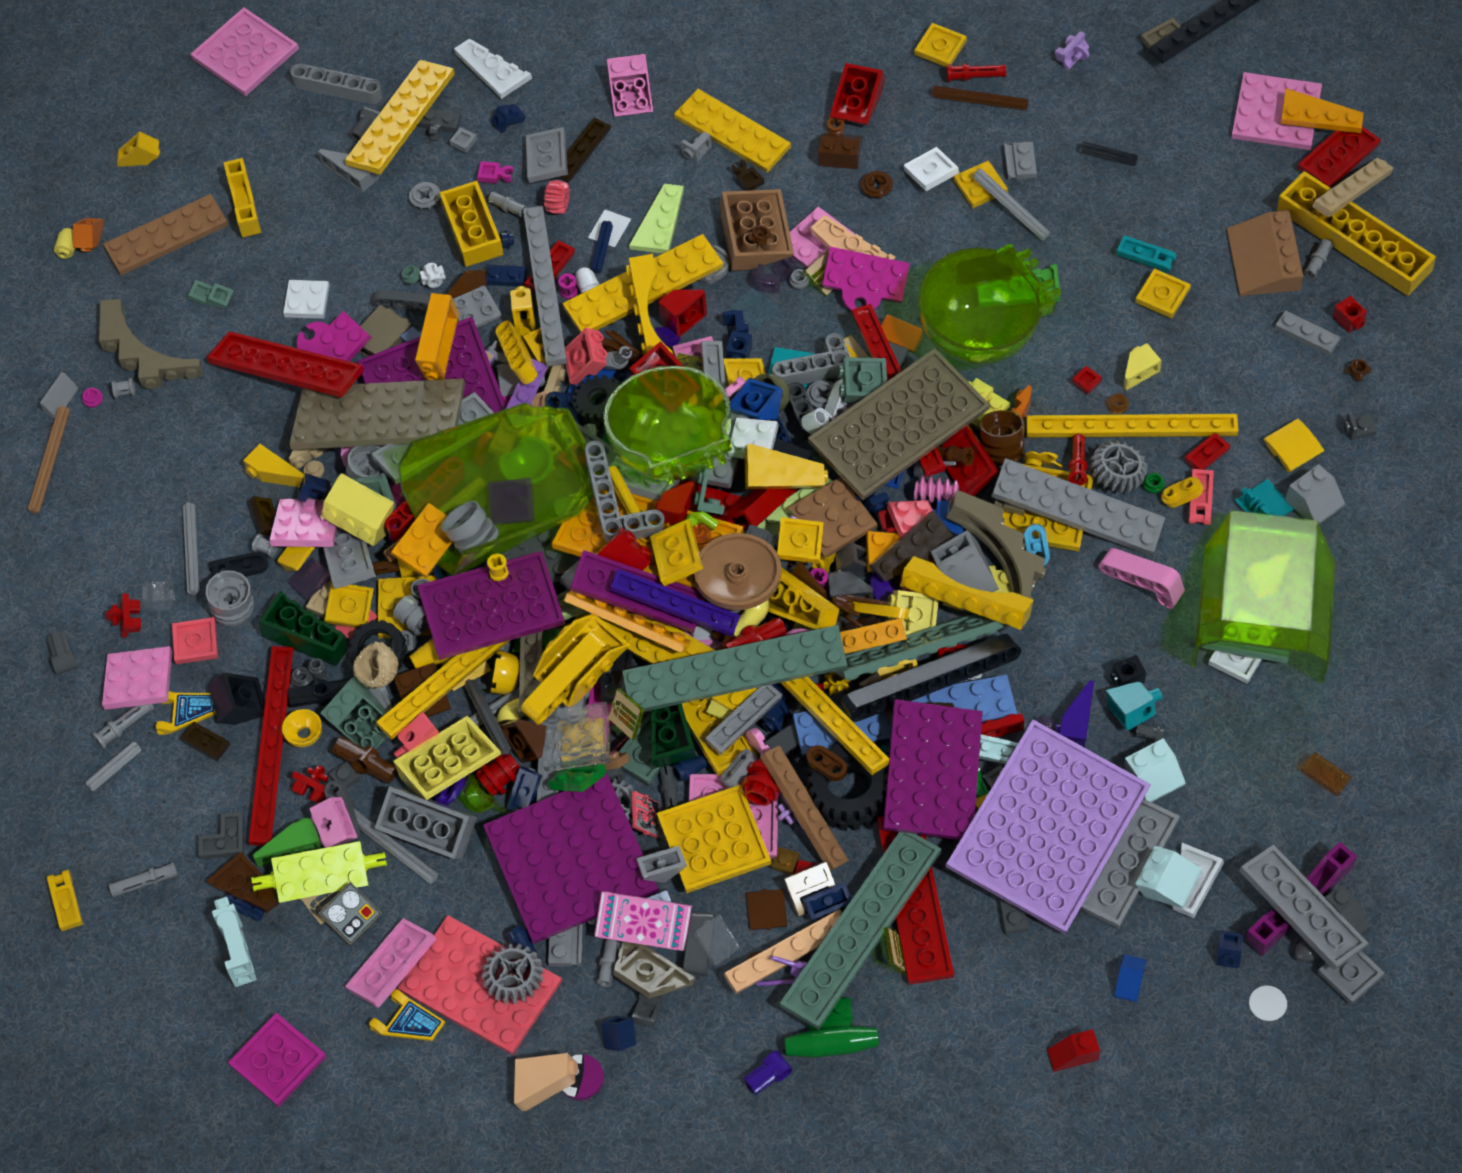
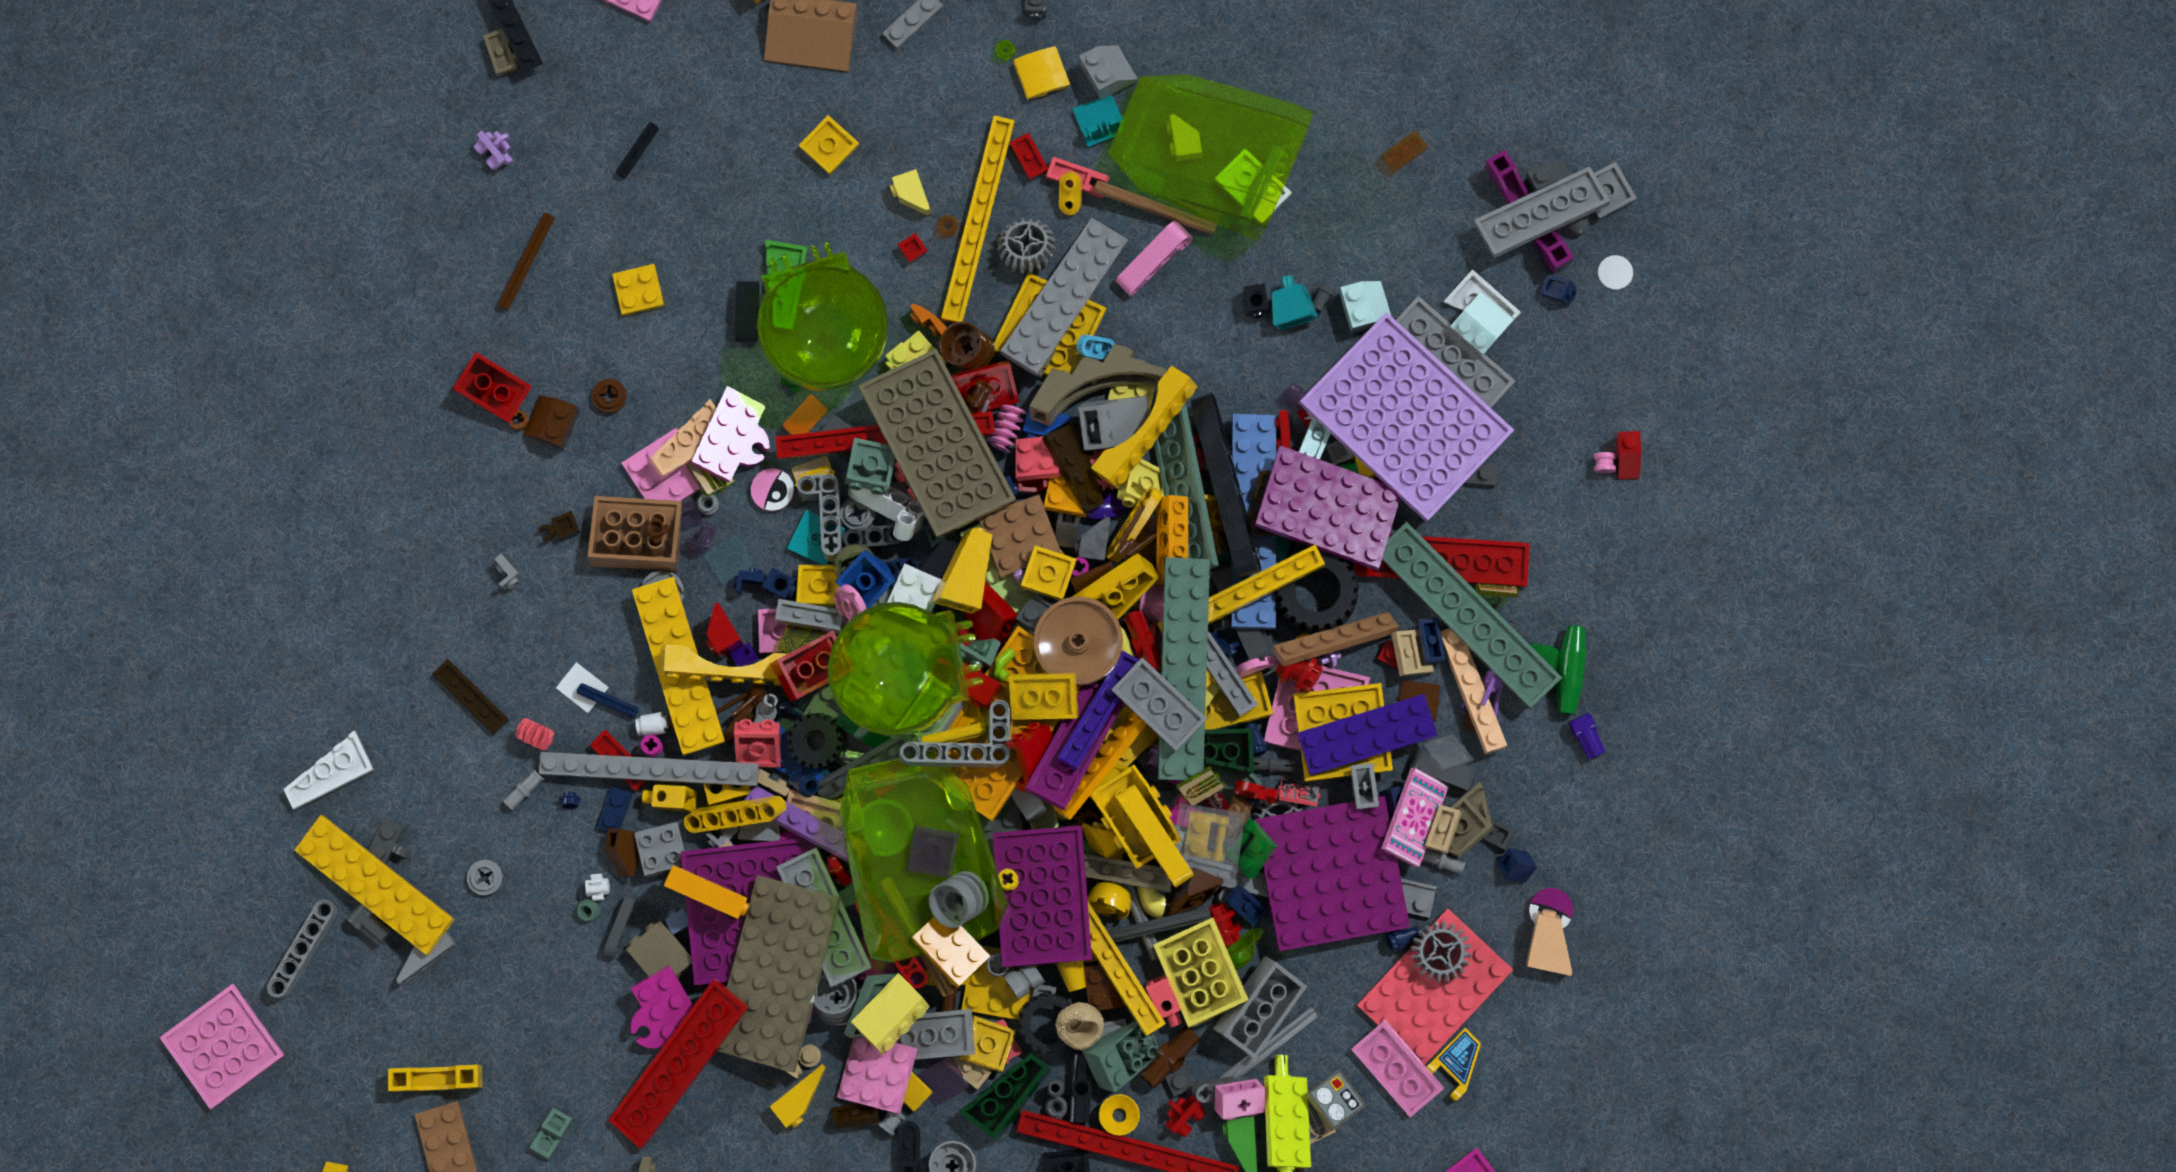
camera: 80 degrees left, 20 degrees up
(306, 299) = (585, 1029): white plate -> none
(313, 487) = (836, 1061): dark blue panel -> none
(463, 140) = (421, 821): light grey plate -> none
(471, 223) = (543, 832): yellow brick -> none
(492, 171) = (475, 800): dark pink plate -> none
(507, 115) = (404, 767): dark blue bracket -> none
(546, 155) = (472, 734): light grey plate -> none
(629, 85) = (401, 626): bright pink slope -> none
(634, 766) = (1256, 791): none -> red plate
(637, 949) = (1443, 829): none -> tan plate
(659, 224) = (595, 634): yellowish green wing -> none
(691, 648) = (1159, 704): none -> light grey plate
(702, 534) = (1019, 666): clear orange tile -> none
(715, 857) = (1367, 734): none -> dark purple plate
(732, 130) = (491, 530): yellow plate -> none
(738, 768) = (1276, 691): light grey beam -> none
(785, 861) = (1374, 670): pearl gold plate -> none
(825, 322) = (772, 490): none -> tile
(828, 763) = (1301, 605): reddish brown plate -> none
(931, 169) = (608, 334): white plate -> none
(940, 45) = (445, 284): yellow plate -> none
(965, 72) = (489, 265): red pin -> none
(1011, 204) = (678, 265): light grey axle -> none
(1020, 160) = (619, 241): light grey plate -> none
(1043, 459) = (996, 323): yellow plate -> none
(1059, 1029) = (1604, 462): none -> bright pink wheel
(1076, 718) = (1295, 362): dark purple slope -> none
(1078, 465) = (1017, 283): red pin -> none
(1130, 978) = (1565, 384): blue slope -> none
(1146, 254) = (775, 148): teal plate -> none
(1153, 478) = (1049, 211): green plate -> none
(1192, 566) = (1155, 207): none -> medium nougat axle
(1305, 406) = (1005, 44): none -> clear neon green plate

